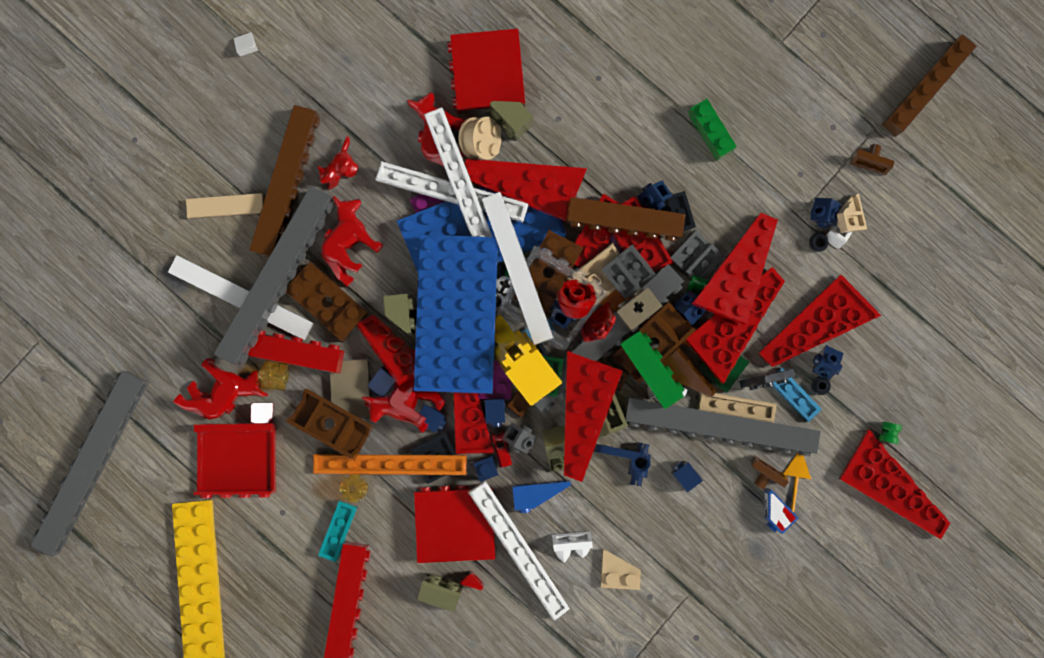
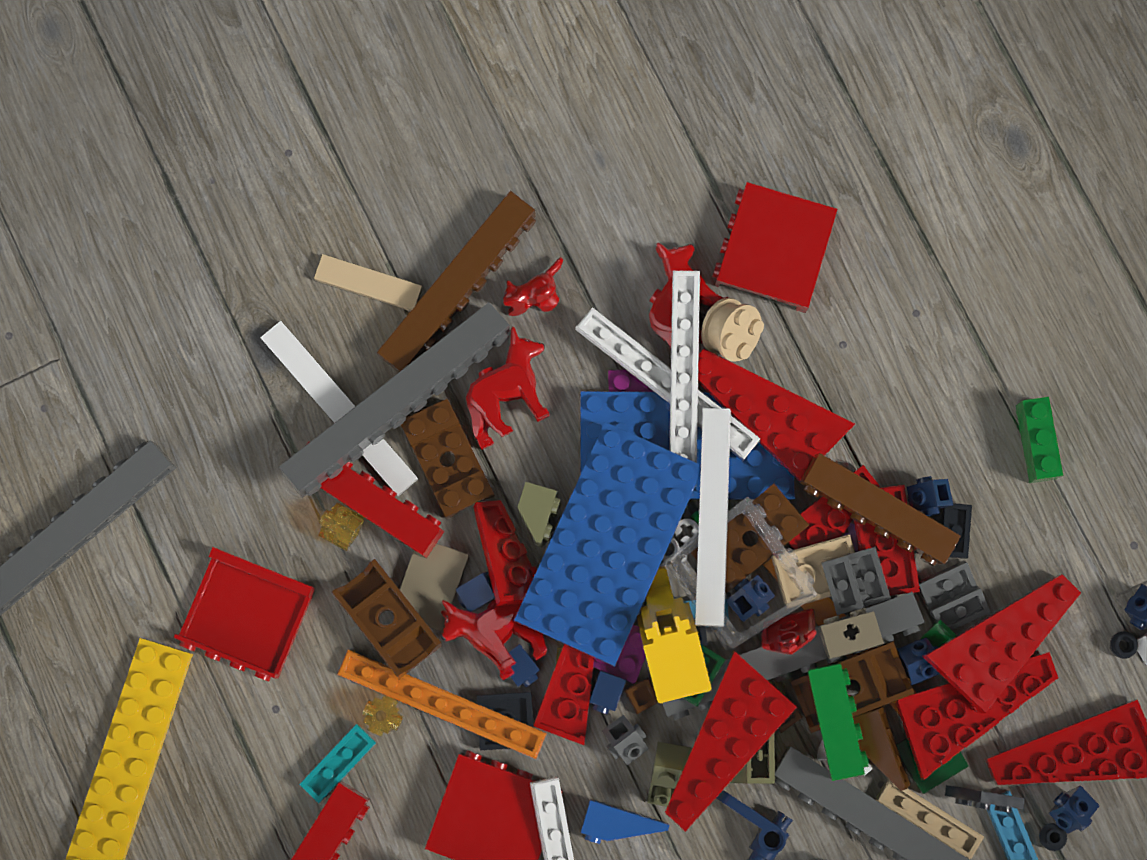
camera: 25 degrees right, 5 degrees down
(224, 392) = (268, 522): red animal -> none
(245, 44) = (479, 89): white slope -> none
(262, 413) = (304, 568): slope -> none
(486, 468) = (565, 762): dark blue brick -> none
(502, 453) = (594, 751): red bar -> none
(512, 117) = (784, 318): olive slope -> none
(576, 298) = (774, 587): red cone -> none

